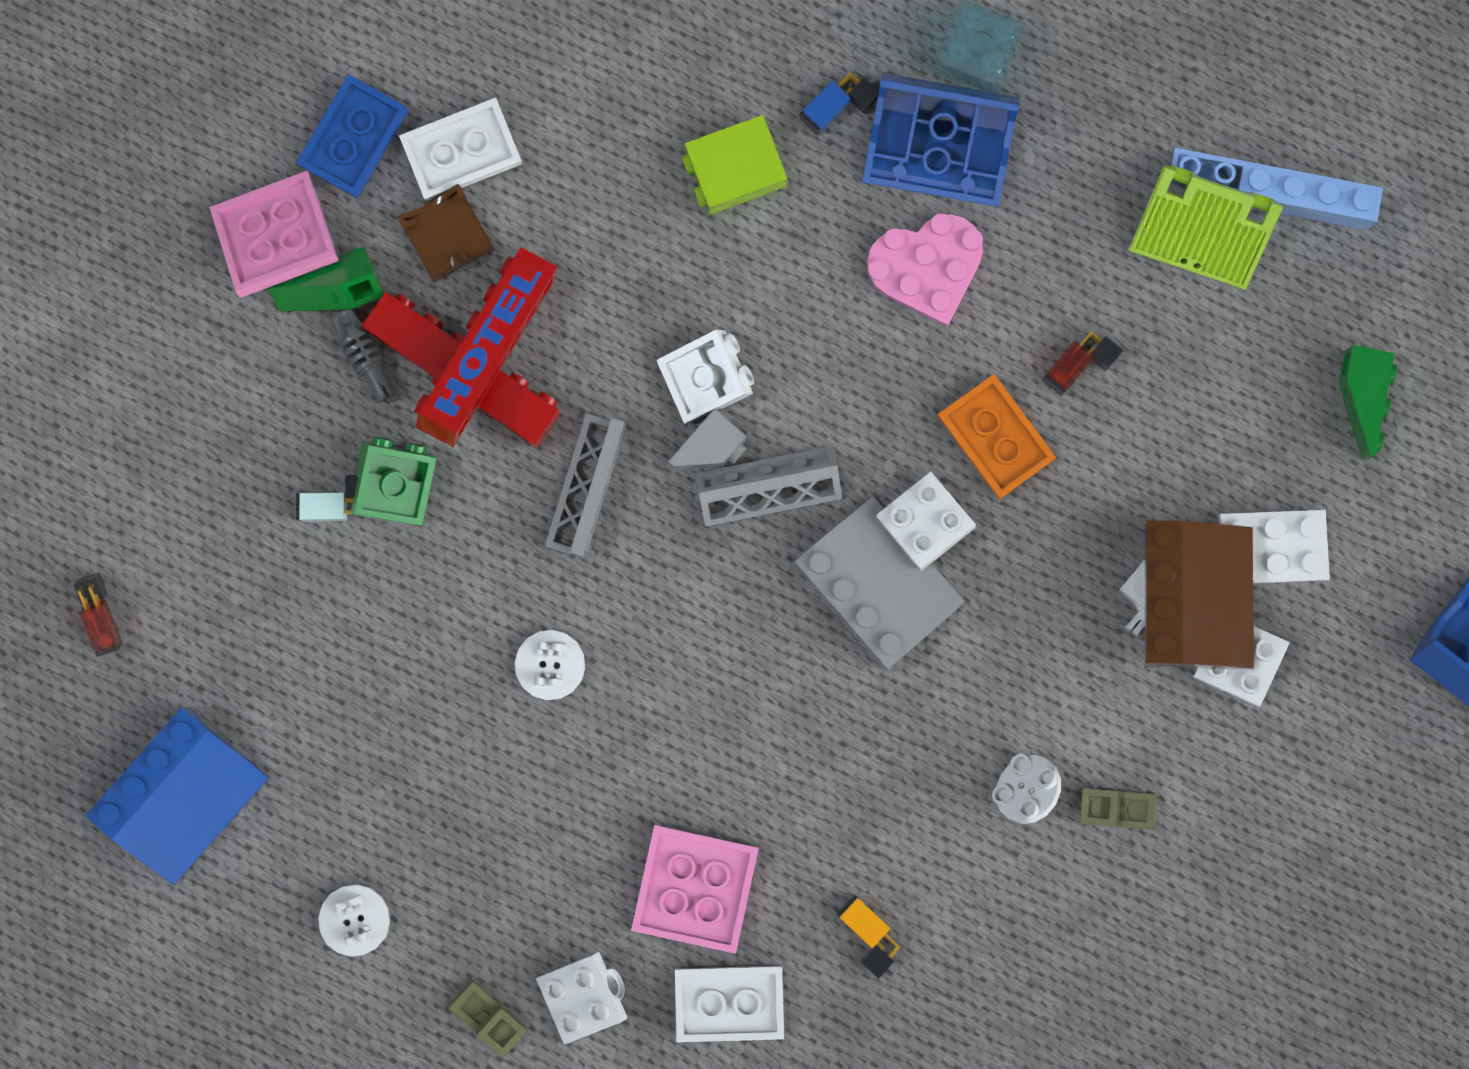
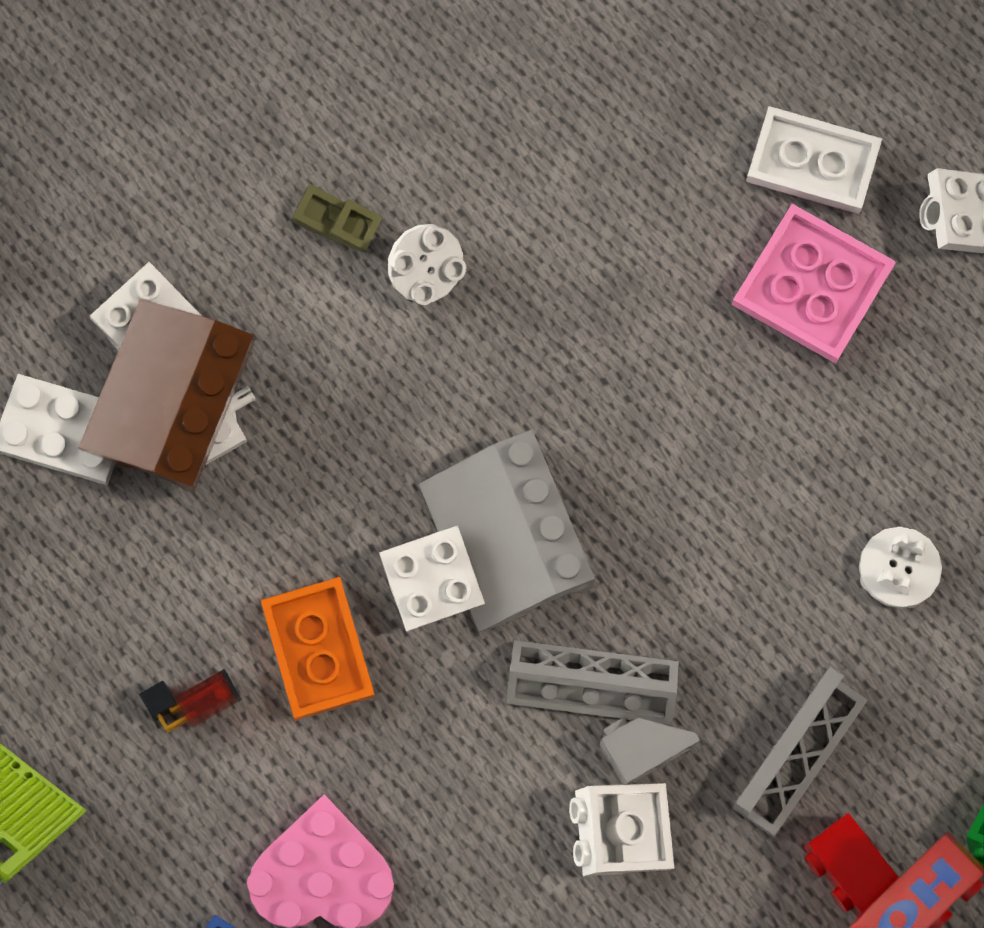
camera: 160 degrees left, 10 degrees down
(871, 930) = (640, 183): piece -> none

